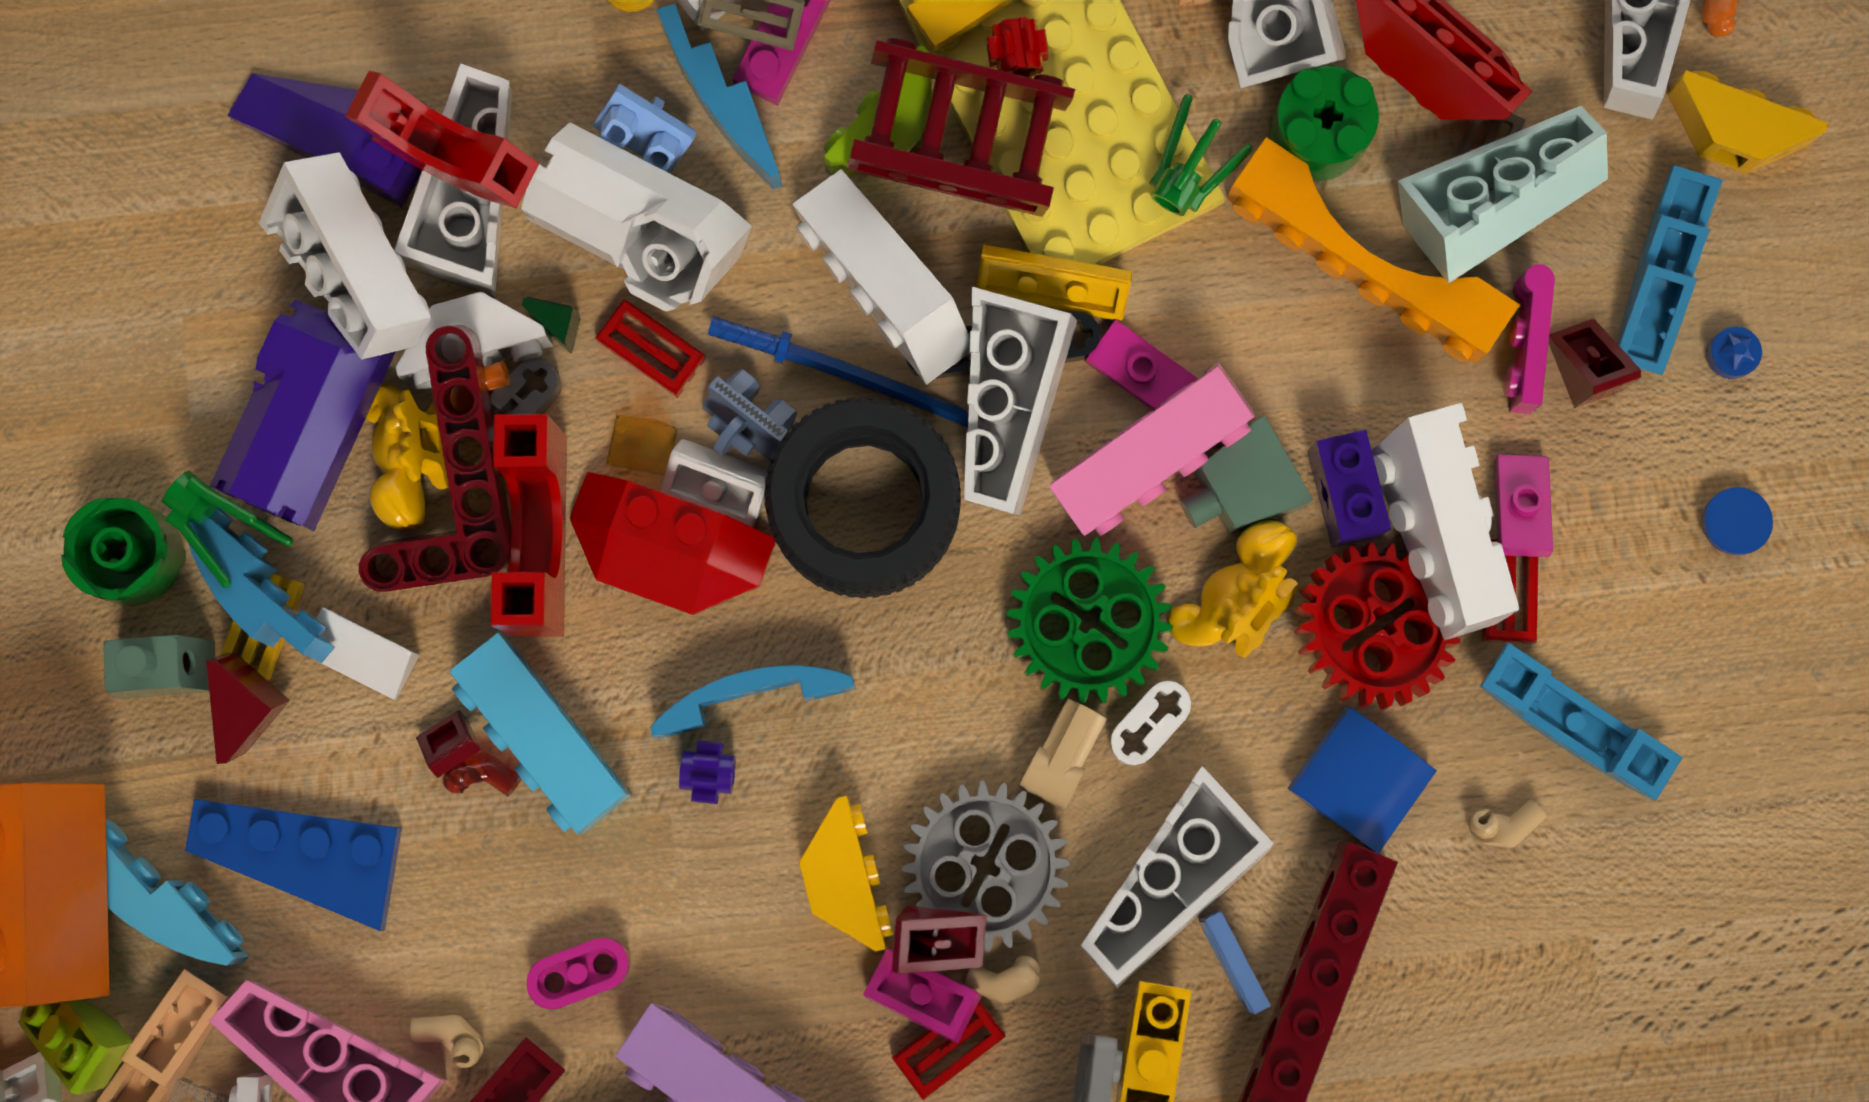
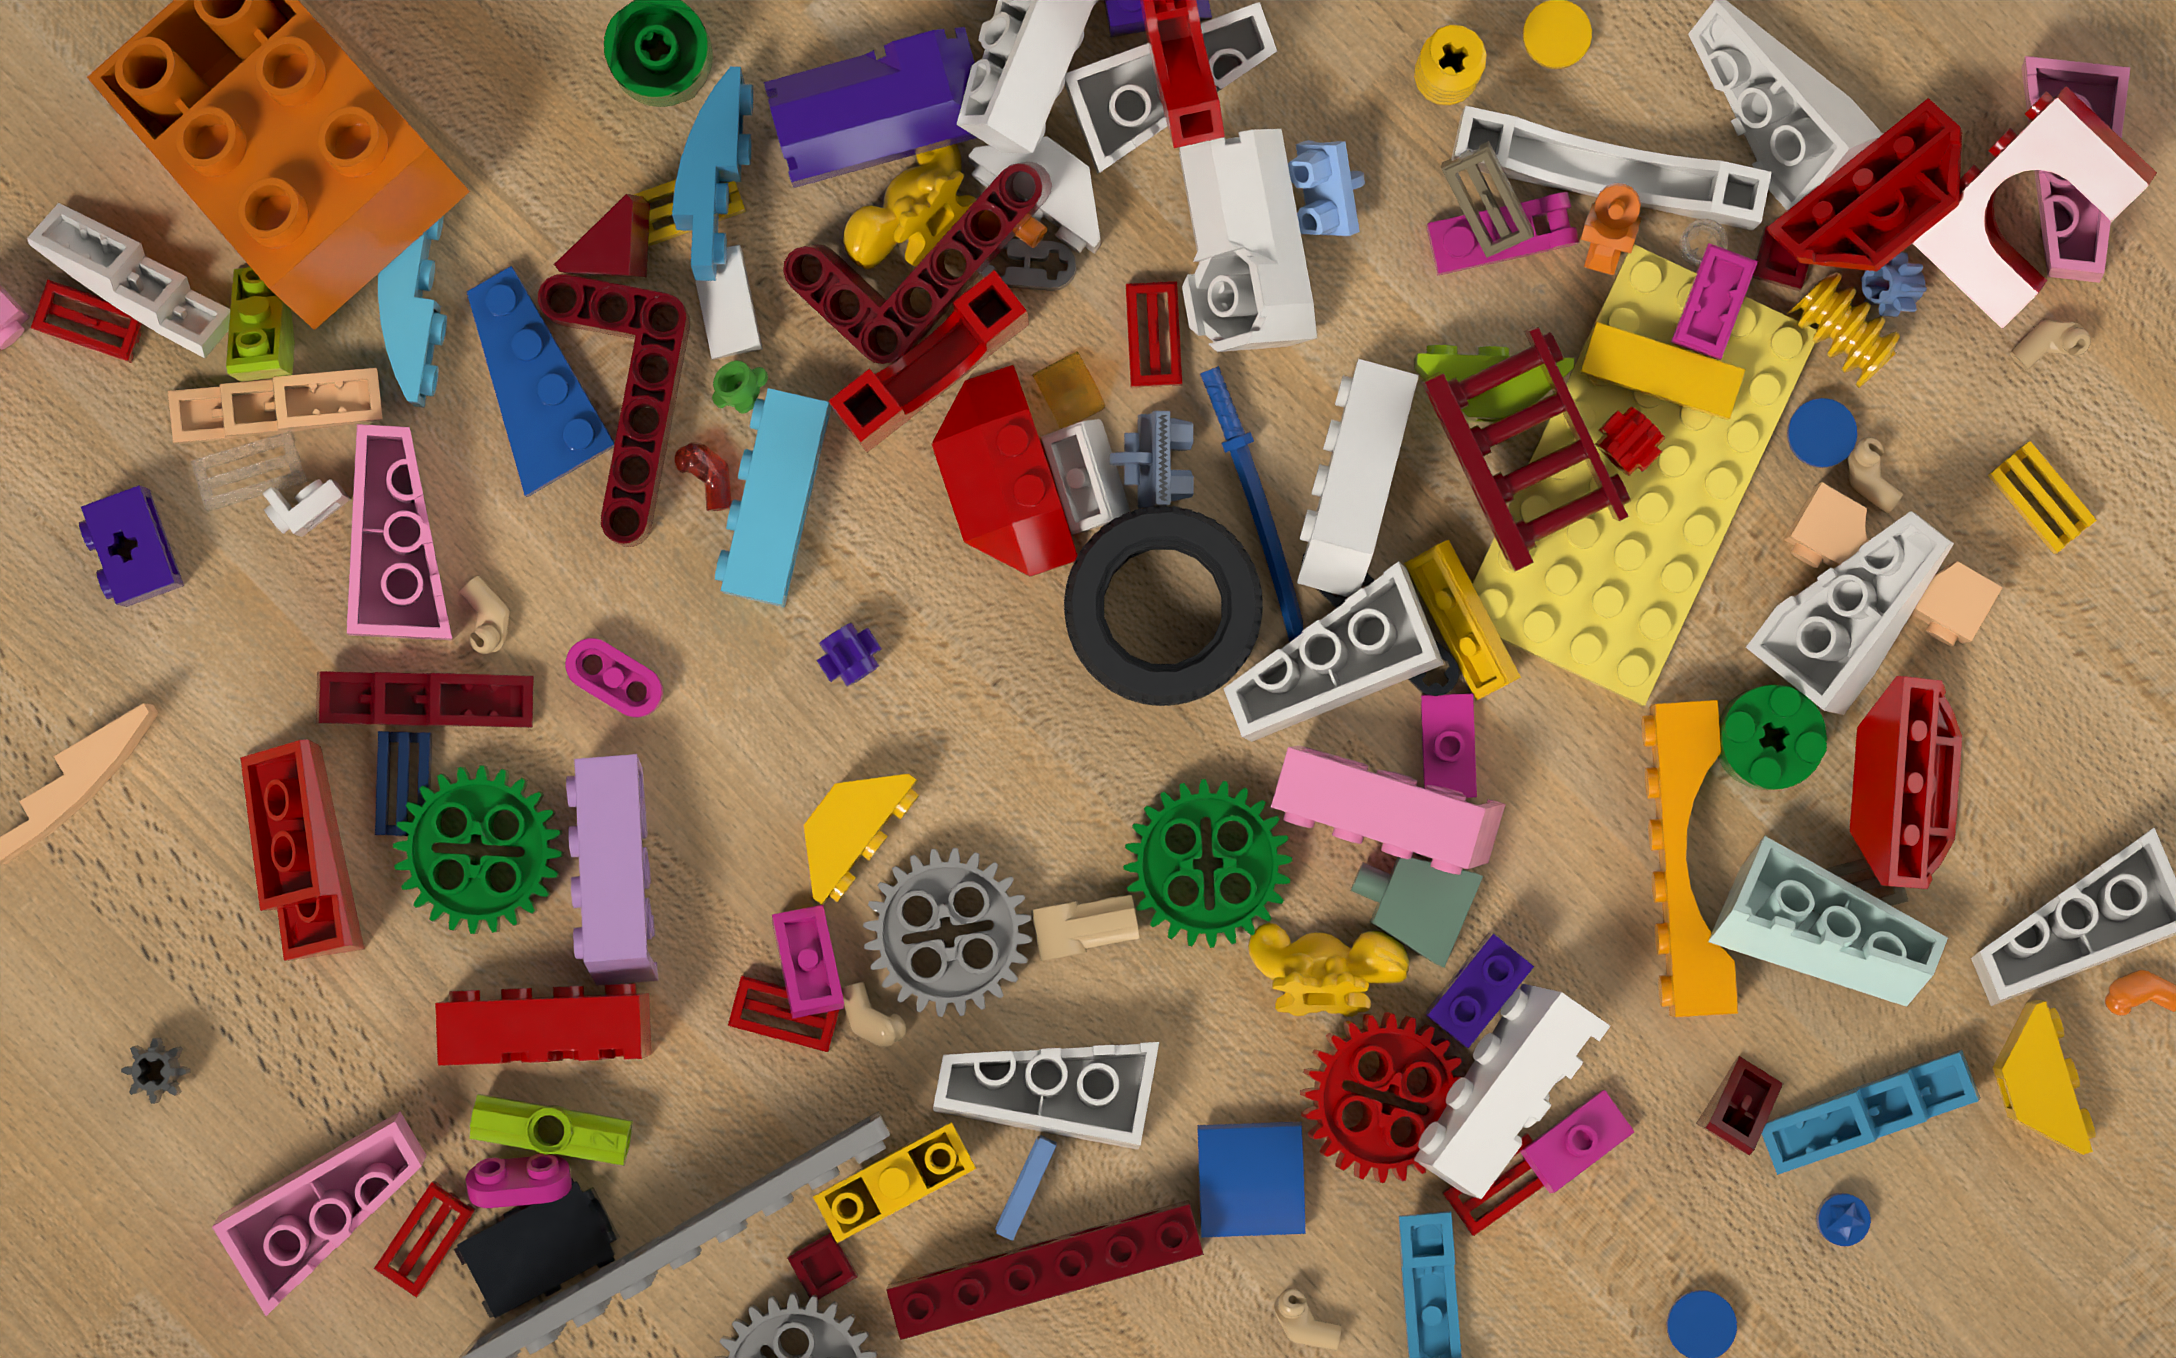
camera: 55 degrees right, 5 degrees up
(156, 666) = (592, 155): sand green torso -> none
(196, 501) = (744, 82): green plant -> none
(373, 777) = (638, 392): none -> dark red beam
(430, 695) = (738, 386): none -> bright green plate
(448, 743) = (711, 431): dark red tile -> none
(557, 319) = (1115, 241): dark green slope -> none
(689, 714) = (884, 604): dark azure slope -> none
(727, 107) = (1399, 242): dark azure slope -> none
(937, 940) = (859, 940): dark red slope -> none
(1140, 715) = (1164, 989): white beam -> none
(1178, 187) = (1619, 661): green plant -> none
(1530, 337) = (1721, 1042): dark pink plate -> none

